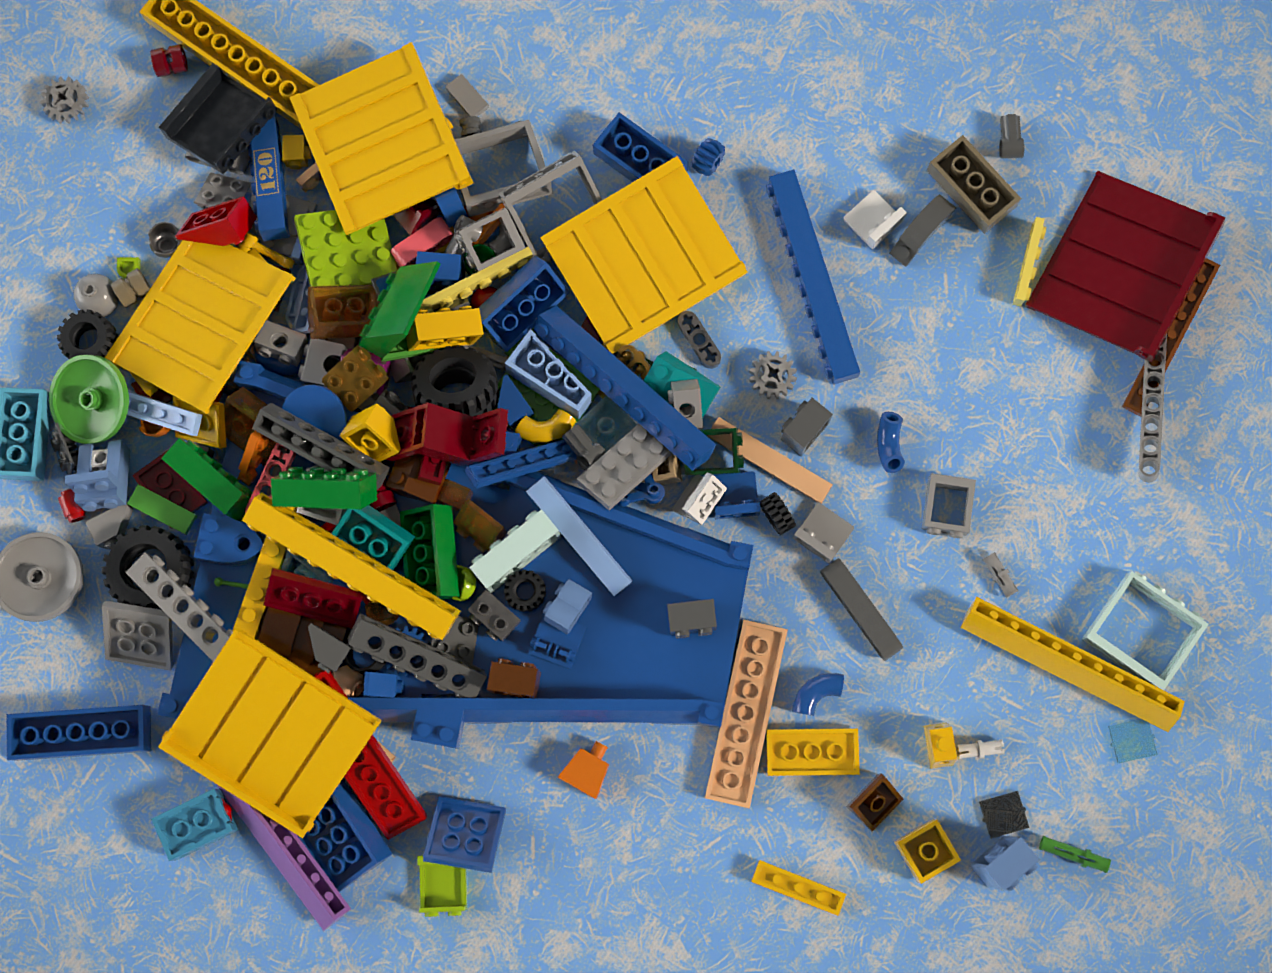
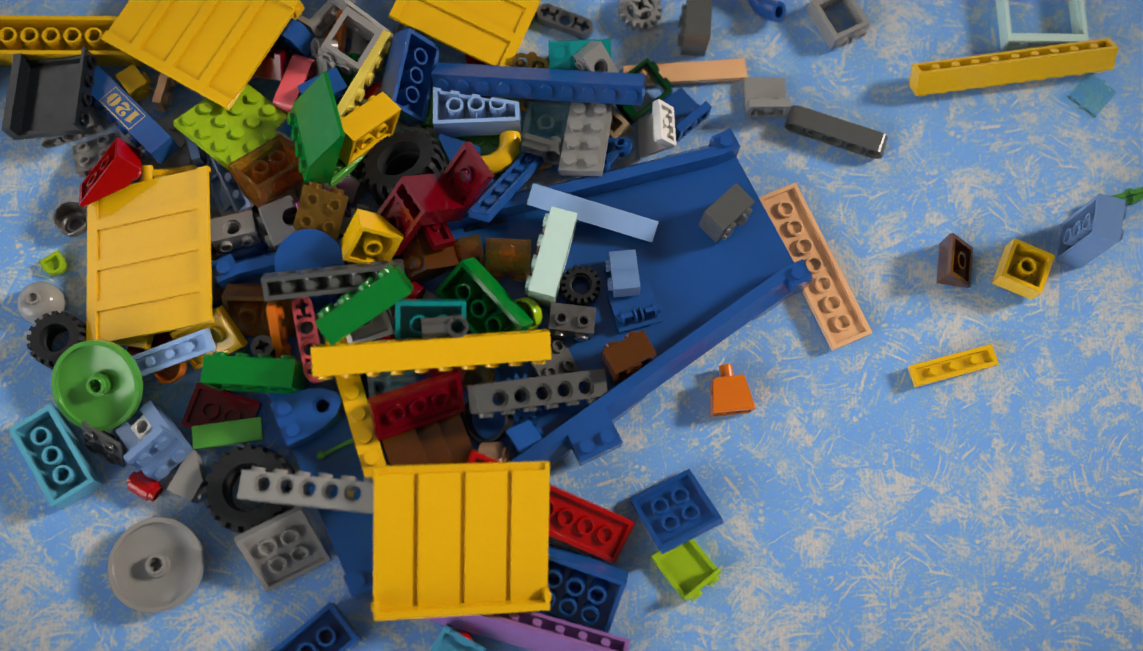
camera: 50 degrees left, 5 degrees down
(130, 288) = (69, 275): dark tan wheel -> none
(227, 460) = (263, 341): none -> dark grey wheel
(327, 649) = (459, 434): dark grey slope -> none
(373, 550) = (441, 326): none -> dark grey piece
(777, 513) = (724, 102): black tyre -> none
(812, 752) = (883, 259): yellow plate -> none
(815, 690) = (850, 212): blue cylinder -> none
(940, 745) = (970, 187): yellow torso -> none
(980, 749) = (997, 172): white pin -> none
(1000, 574) = (926, 47): light grey pin -> none
(1004, 814) = (1049, 208): clear smoke piece -> none

